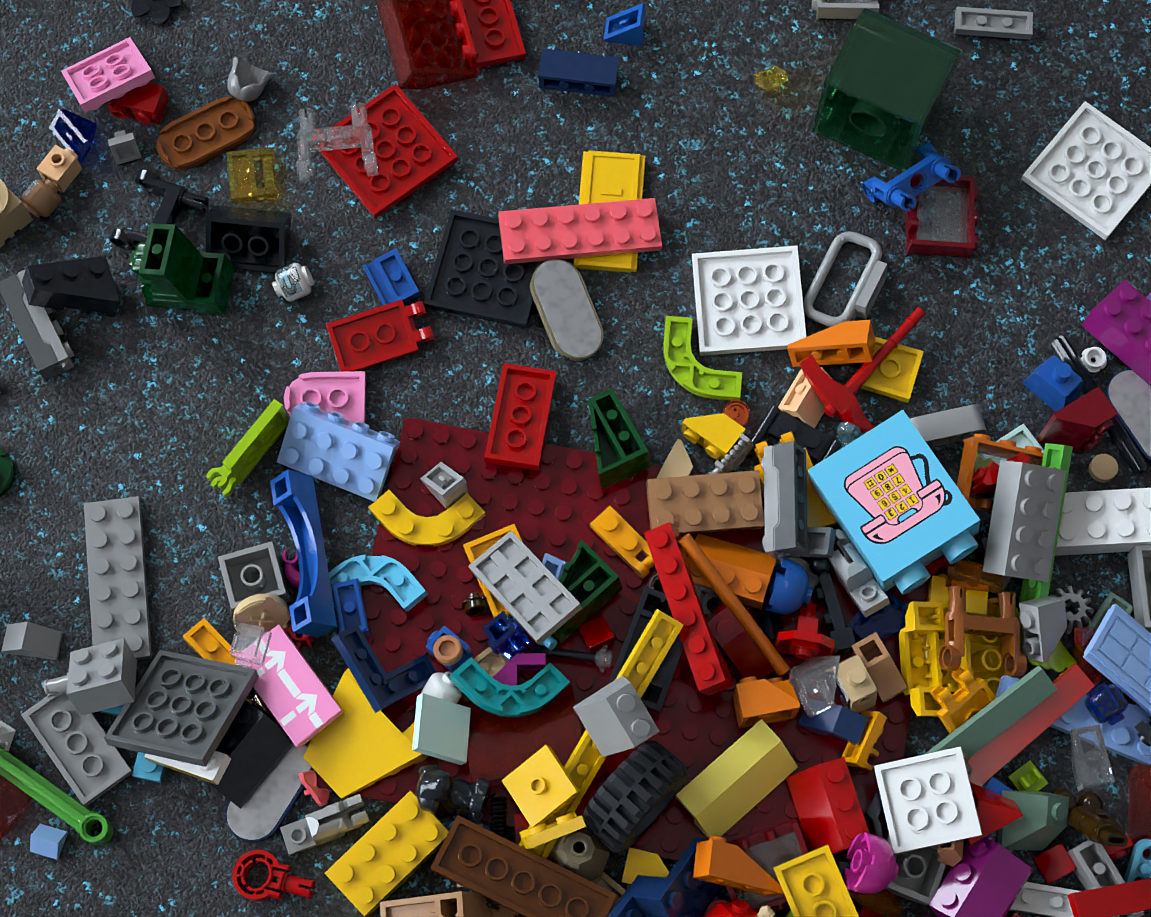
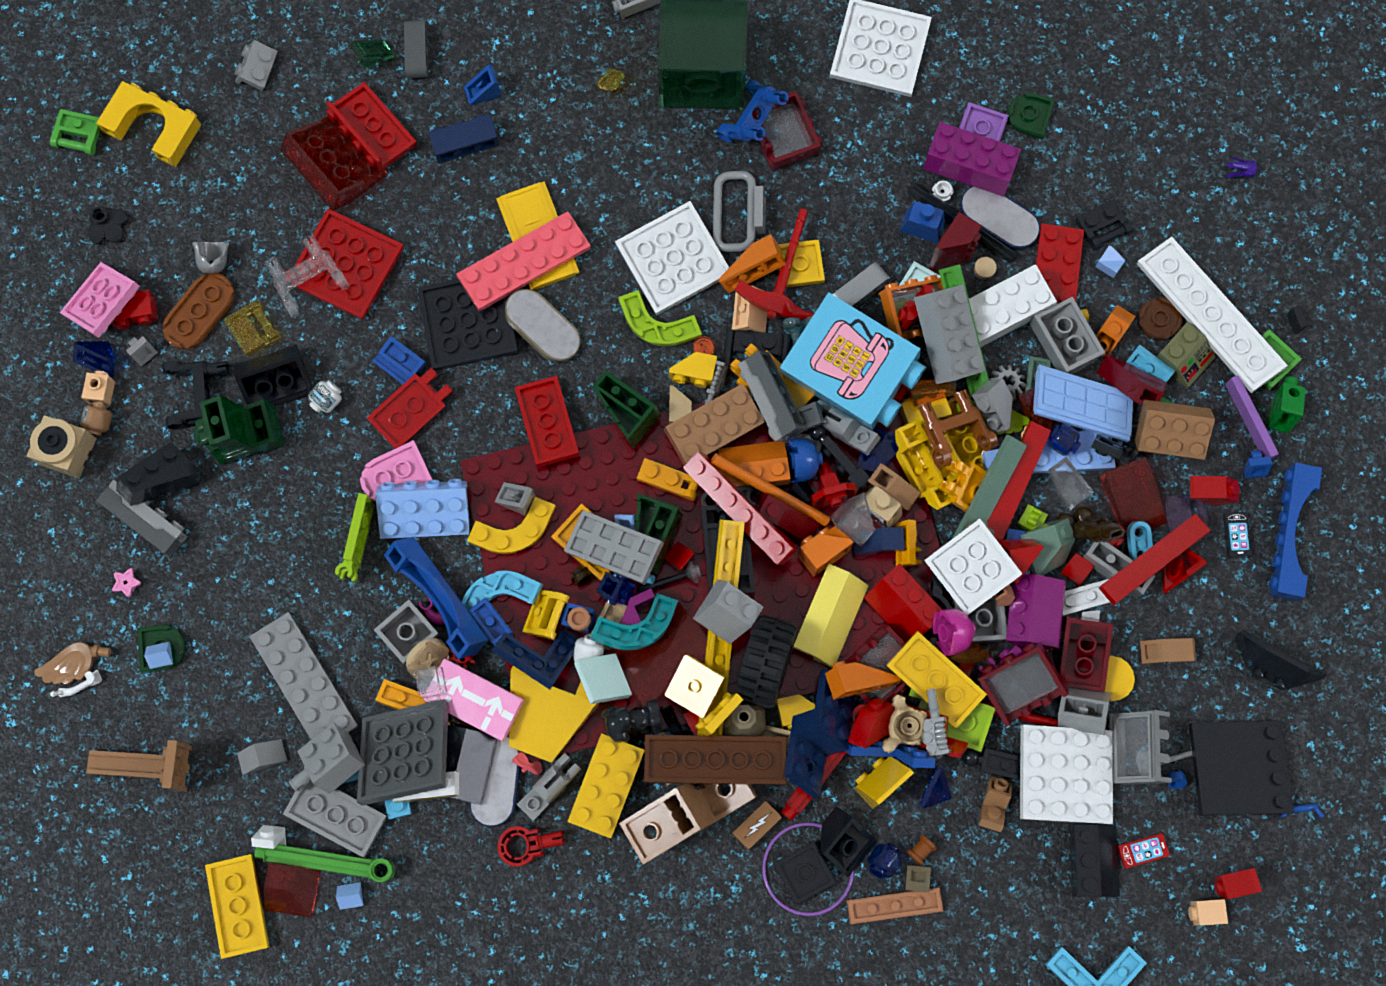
camera: 25 degrees left, 5 degrees up
(414, 628) = (540, 612): none -> yellow plate

